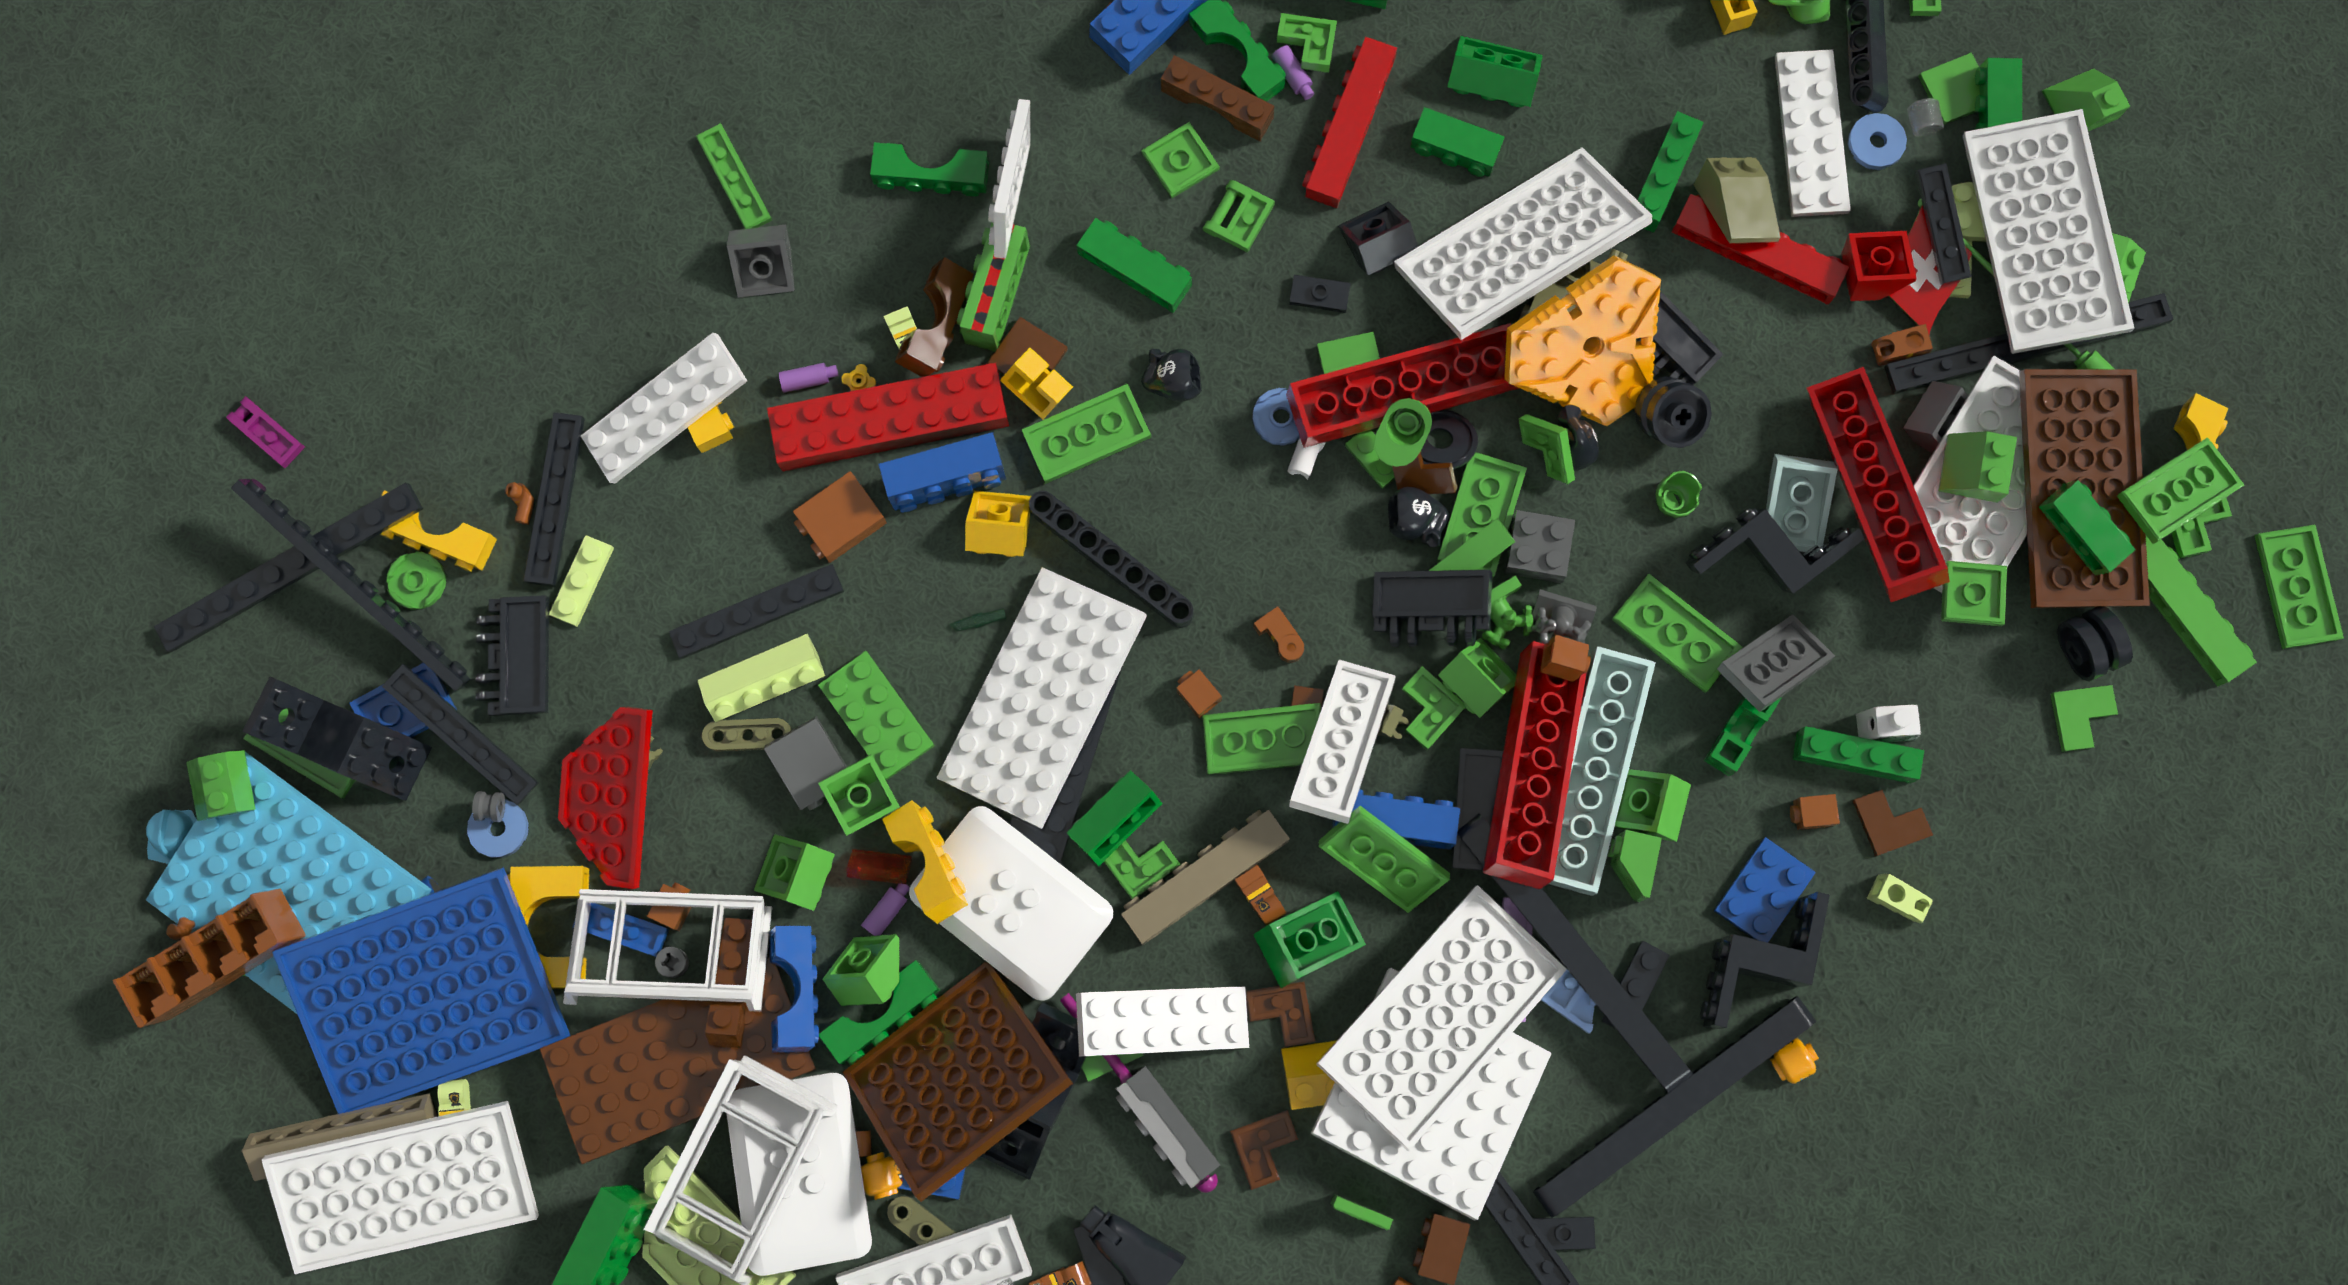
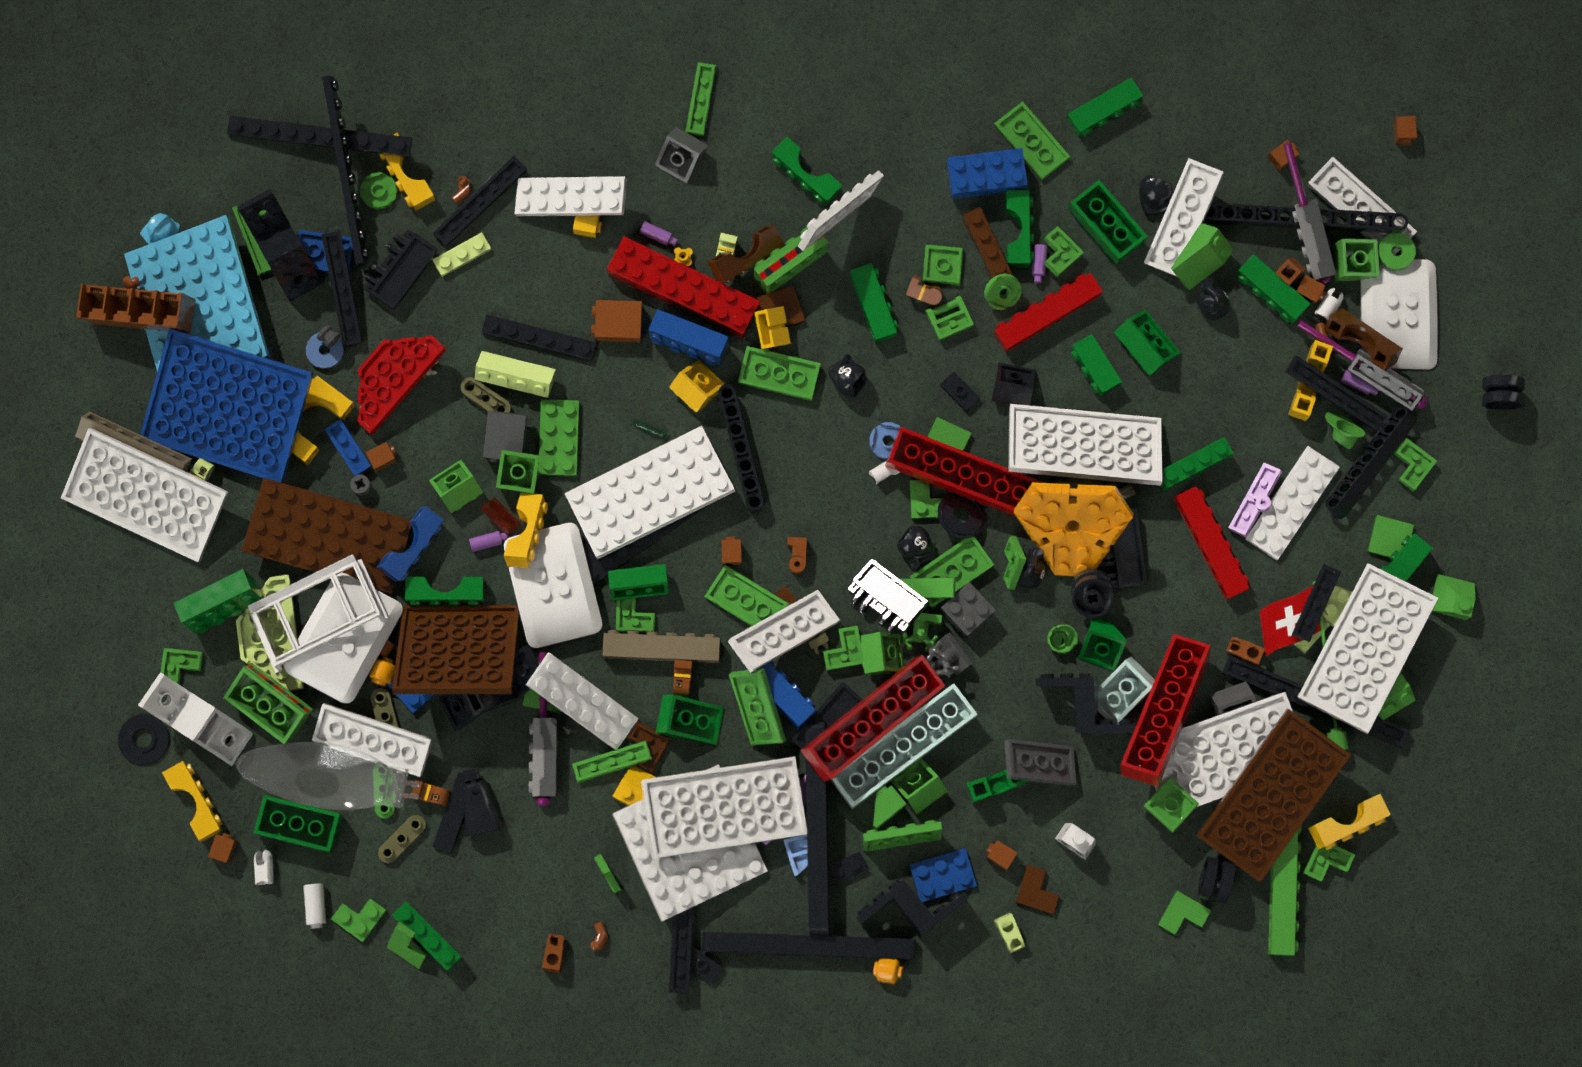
camera: 30 degrees right, 0 degrees up
(220, 785) = (205, 224): bright green slope -> none
(266, 432) = (359, 55): magenta plate -> none
(726, 1018) = (372, 526): reddish brown arch -> none
(750, 992) = (388, 529): white piece -> none
(865, 971) = (453, 563): bright green slope -> none
(1193, 205) = (923, 292): none -> dark orange leg
(1254, 1066) = (612, 761): none -> bright green tile
(1254, 1147) = (583, 800): reddish brown tile -> none
(1266, 136) = (1001, 282): none -> bright green tile
(1403, 432) = (938, 496): bright green piece -> none
(1430, 478) = (931, 522): reddish brown tile -> none
(1441, 1248) = (634, 923): reddish brown brick -> none
(1565, 658) = (930, 676): dark orange brick -> none
(1674, 889) = (904, 836): none -> bright green plate
(1676, 632) = (1004, 707): bright green tile -> none
(1730, 465) = (1102, 644): none -> green slope
(1739, 199) = (1218, 508): slope -> none
(1771, 154) = (1256, 500): none -> lavender hinge
(1858, 755) = (1046, 843): green brick -> none
(1877, 264) = (1265, 598): red slope -> none
(1885, 127) = (1312, 536): medium blue tile -> none
(1923, 114) = (1359, 539): clear piece -> none
(1978, 465) = (1226, 740): bright green slope -> none
(2087, 527) = (1255, 814): green brick -> none
(2180, 490) = (1323, 835): bright green tile -> none
(2299, 586) = (1354, 936): bright green tile -> none

